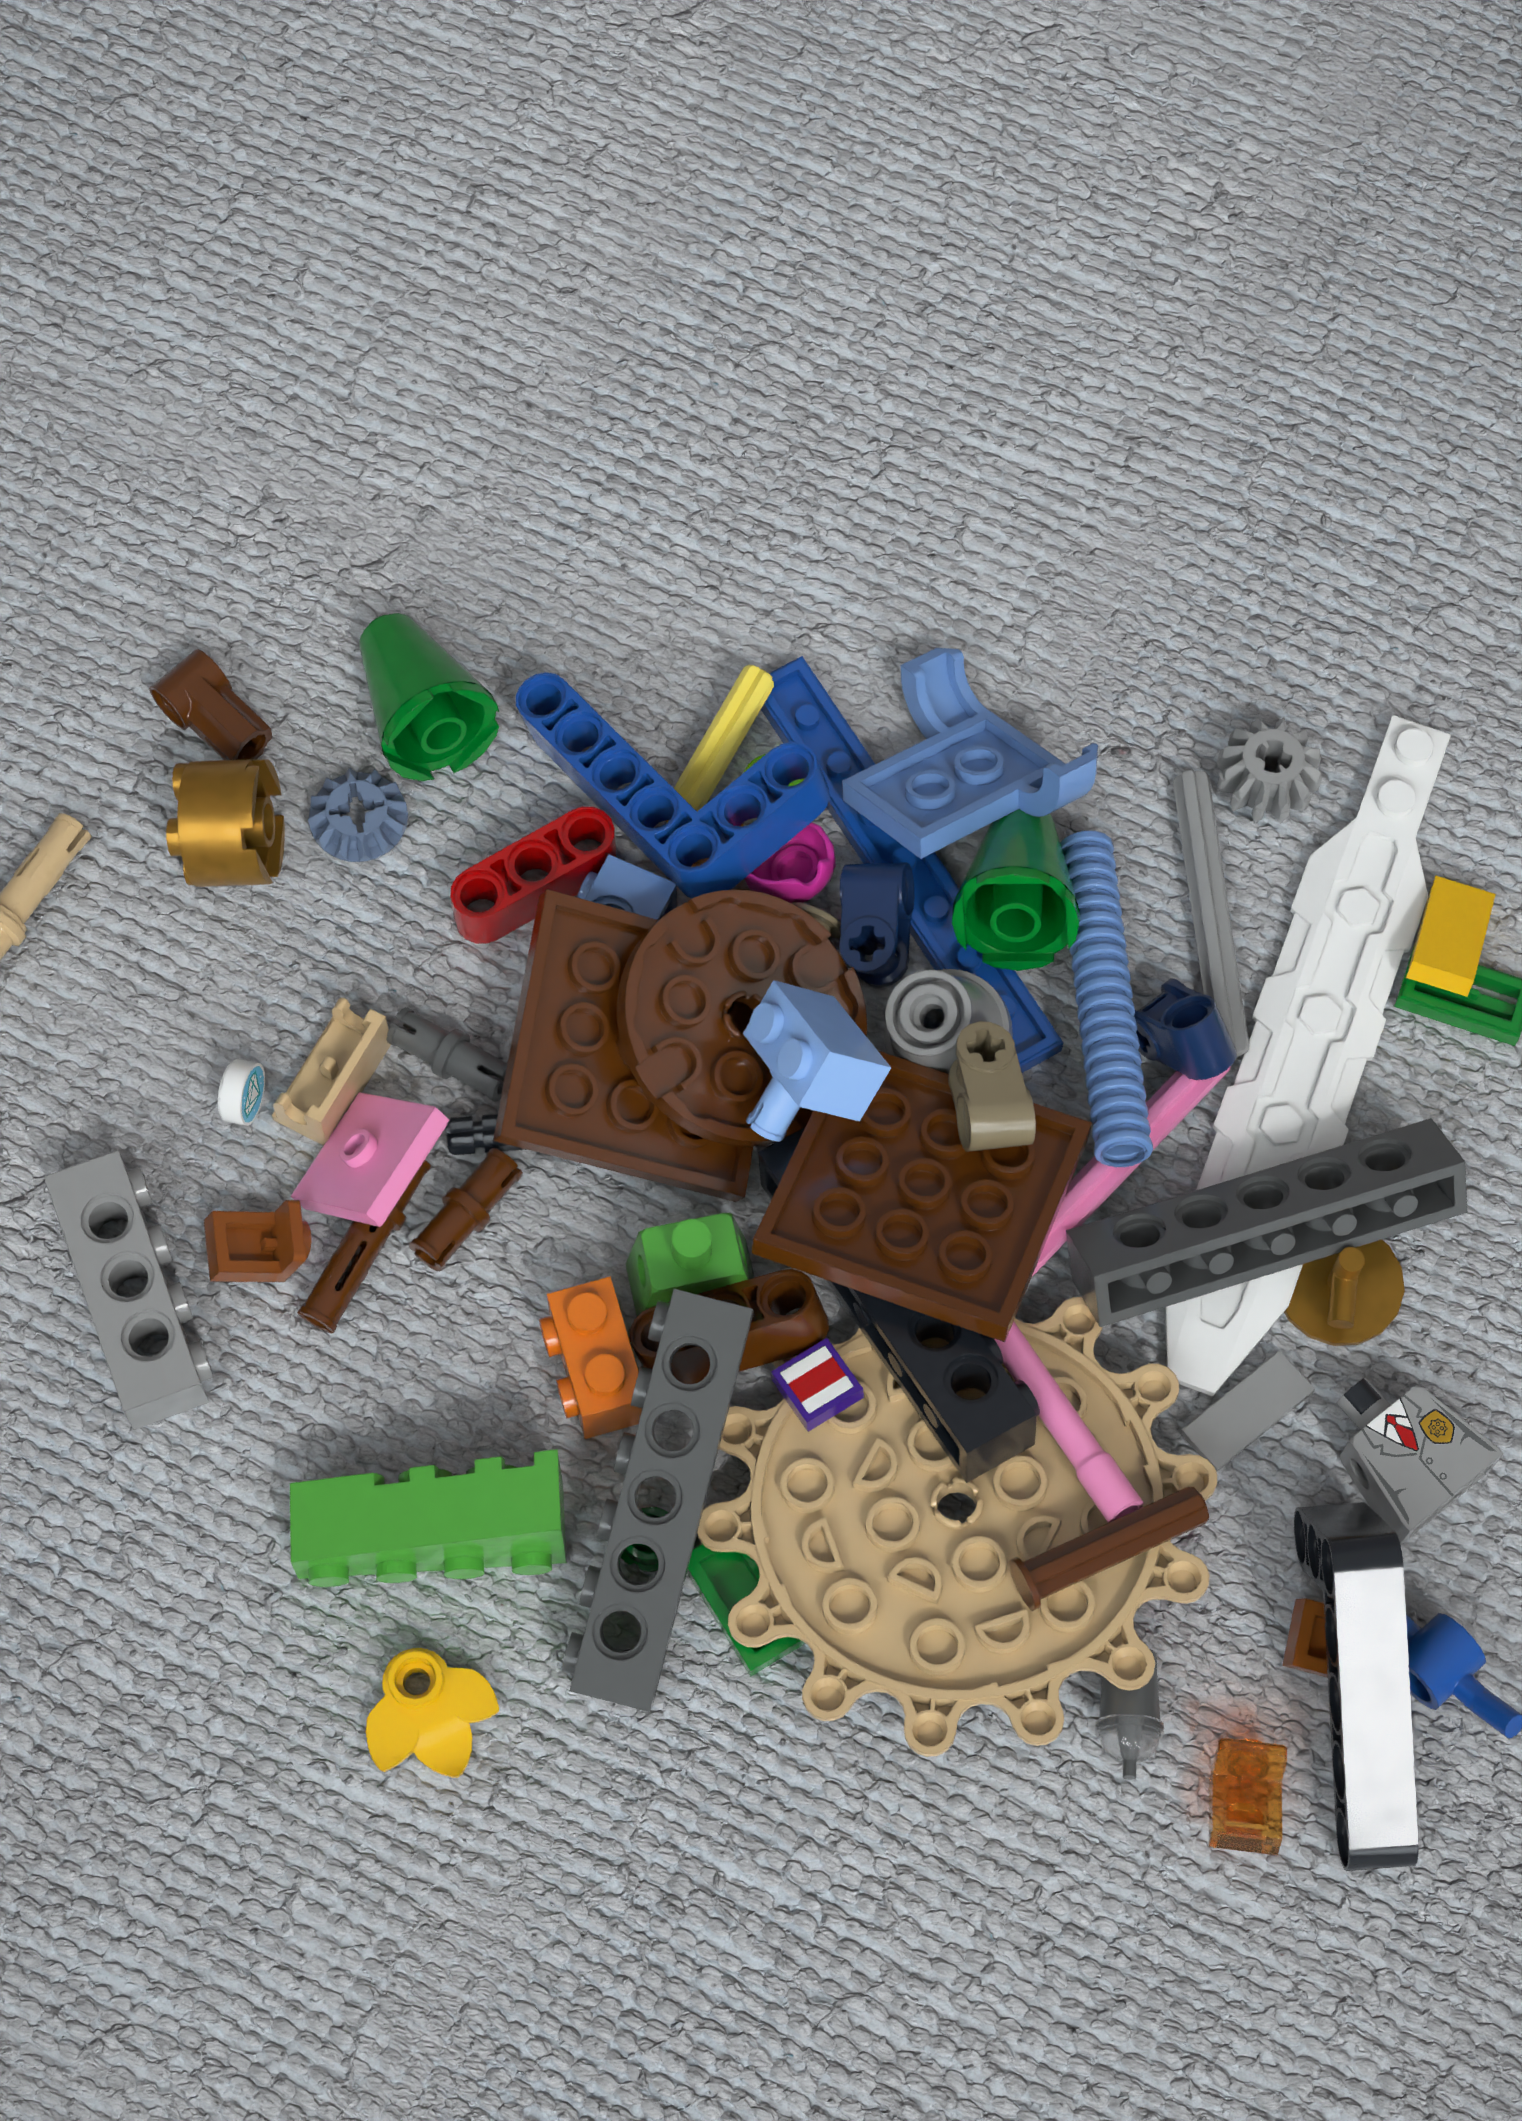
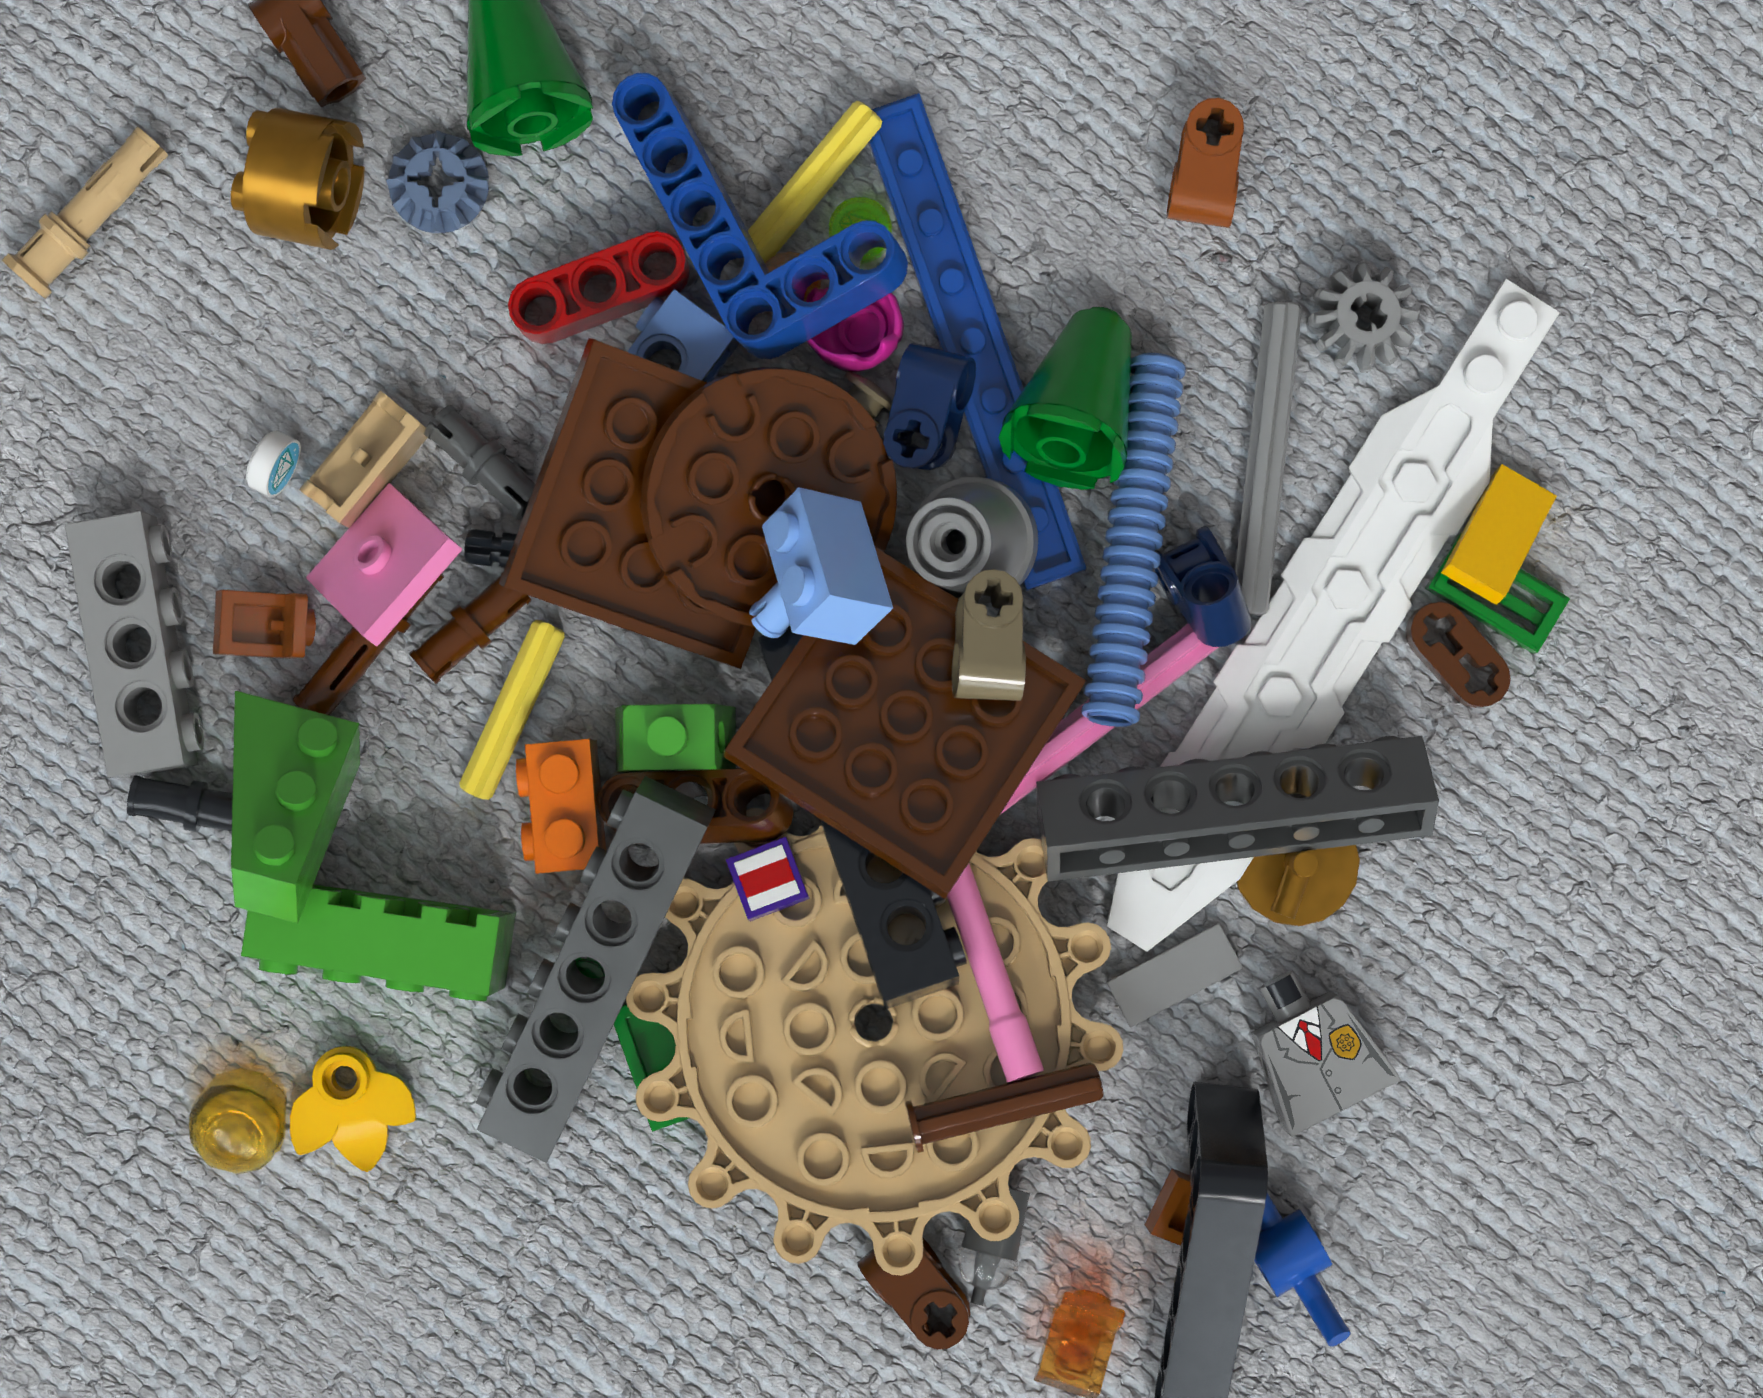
camera: 15 degrees right, 20 degrees up
(214, 1435) = (180, 803): none -> black pin
(311, 1751) = (238, 1121): none -> clear yellow hair
(312, 1392) = (286, 800): none -> bright green wedge
(522, 1283) = (512, 710): none -> light yellow axle
(965, 770) = (1051, 267): medium blue piece -> none
(1057, 1774) = (915, 1291): none -> reddish brown piece
(1088, 671) = (1207, 175): none -> dark orange piece
(1443, 1056) = (1446, 665): none -> reddish brown beam

